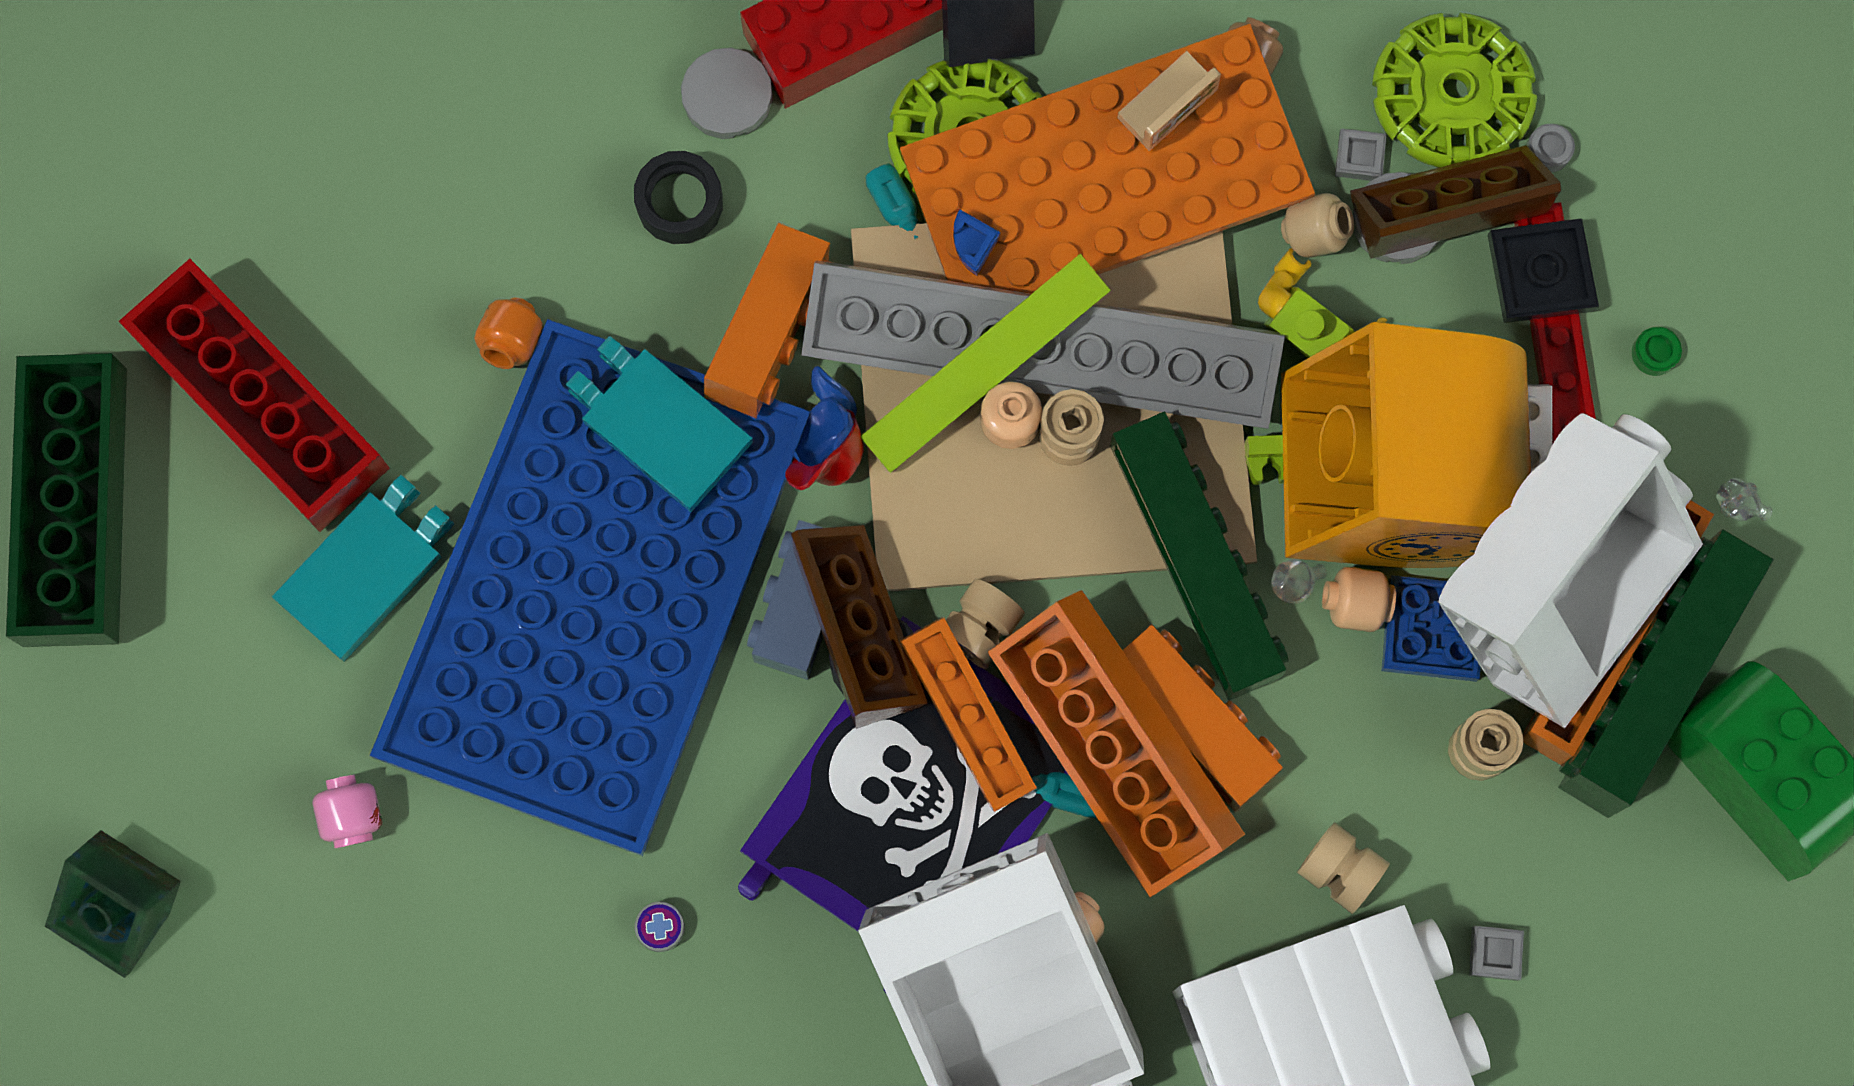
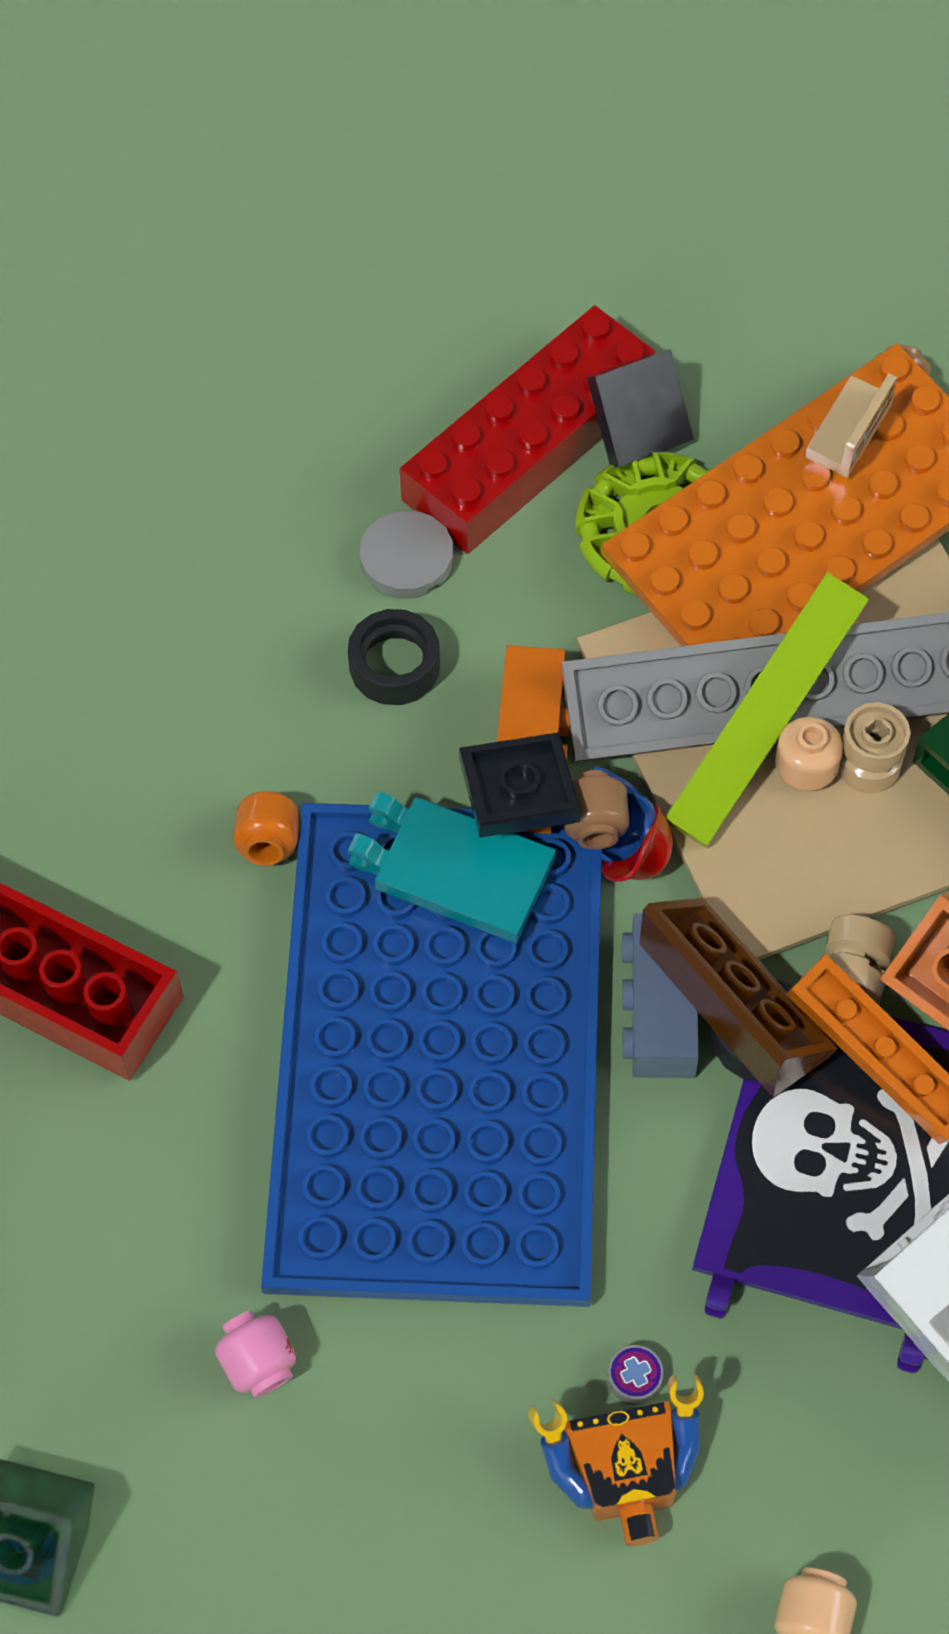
camera: 15 degrees left, 15 degrees down
(363, 569) = (188, 1104): teal tile -> none
(620, 998) = (625, 1459): none -> torso
(732, 373) = (519, 785): none -> black tile
(798, 412) = (603, 810): none -> medium nougat head
(892, 197) = (605, 600): teal piece -> none
(973, 241) = (708, 604): blue tile -> none

